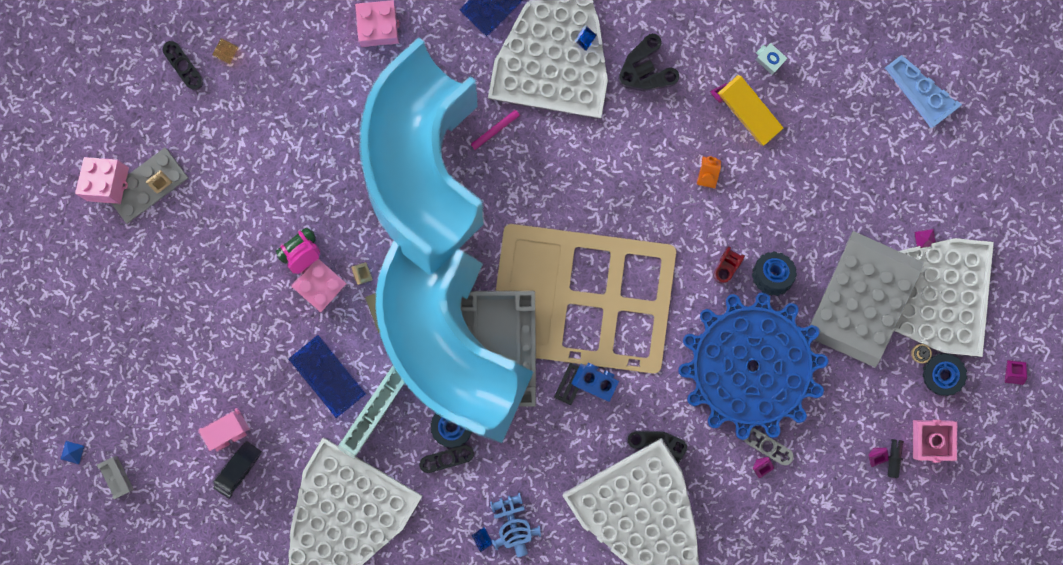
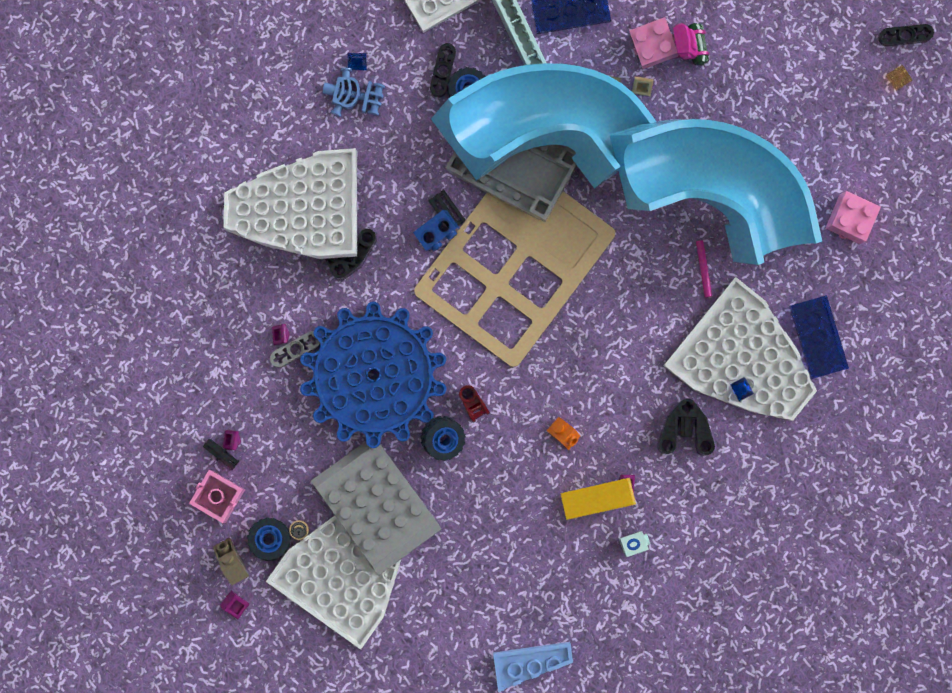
camera: 115 degrees right, 5 degrees down
(925, 238) = (398, 591): magenta slope -> none
(982, 397) = (230, 561): none -> dark tan slope

